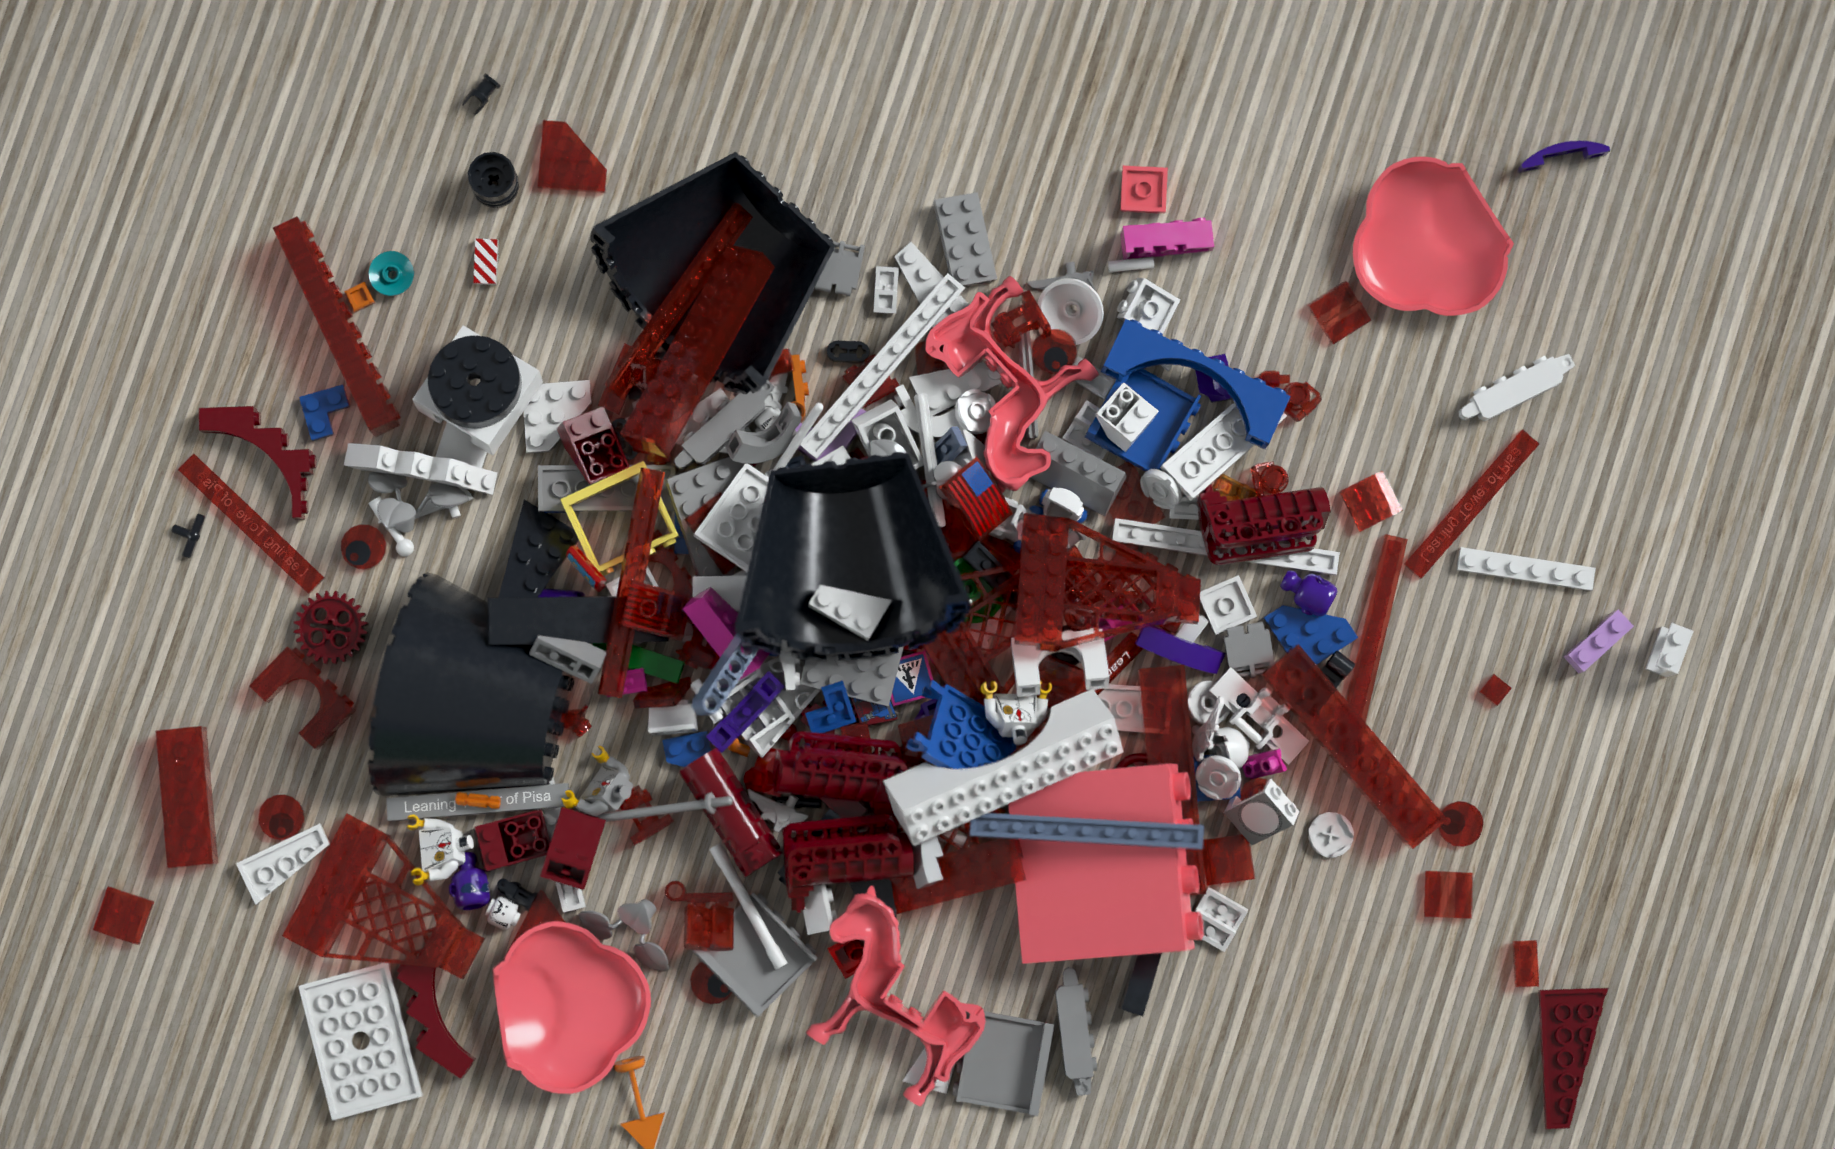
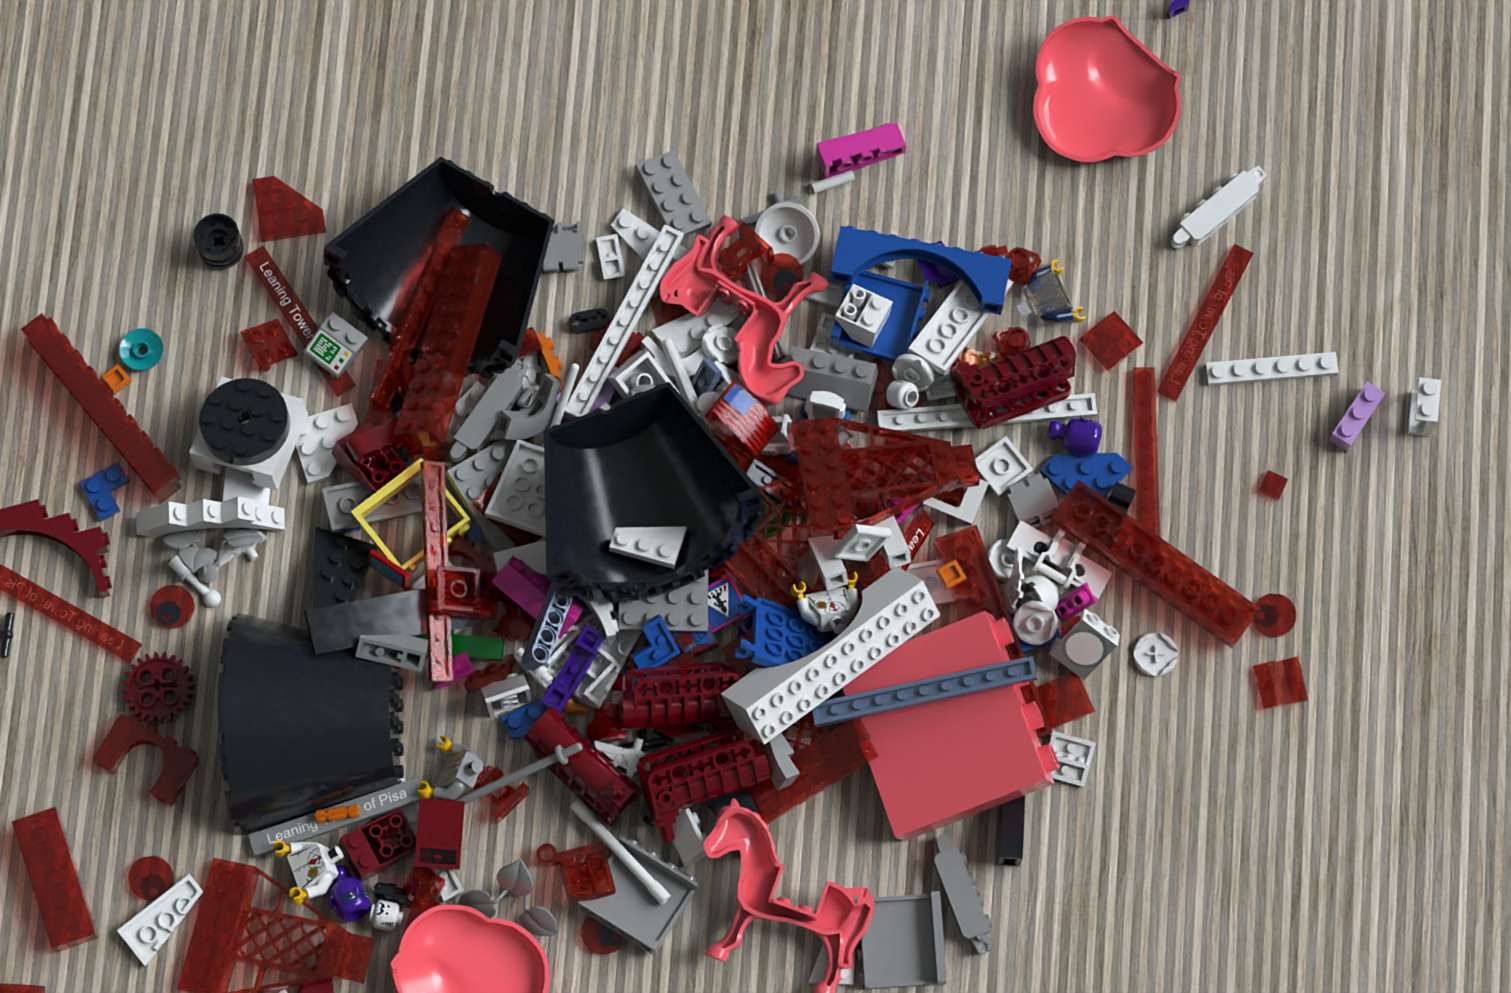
camera: 10 degrees left, 10 degrees down
(483, 91) = (190, 166): black piece -> none
(485, 261) = (228, 319): tile -> none
(520, 298) = (268, 344): none -> clear red hinge
(544, 894) = (421, 885): none -> clear red piece
(557, 281) = (292, 310): none -> clear red tile
(576, 721) = (414, 719): clear red animal -> none
(586, 318) = (335, 345): none -> slope
(599, 432) = (374, 442): none -> dark red beam
(847, 956) = (726, 872): red slope -> none
(1062, 660) = (861, 542): none -> white plate
(1143, 189) = (827, 111): coral plate -> none
(1144, 508) = (902, 394): none -> white head
(1145, 710) = (951, 574): none -> orange tile
(1148, 305) = (858, 211): white plate -> none
(1180, 650) = (969, 514): dark purple slope -> none
(1318, 440) = (1048, 297): none -> clear torso
(1339, 312) = (1037, 179): clear red slope -> none
(1525, 963) = (1370, 728): clear red plate -> none
(1567, 1039) = (1428, 788): dark red wing -> none

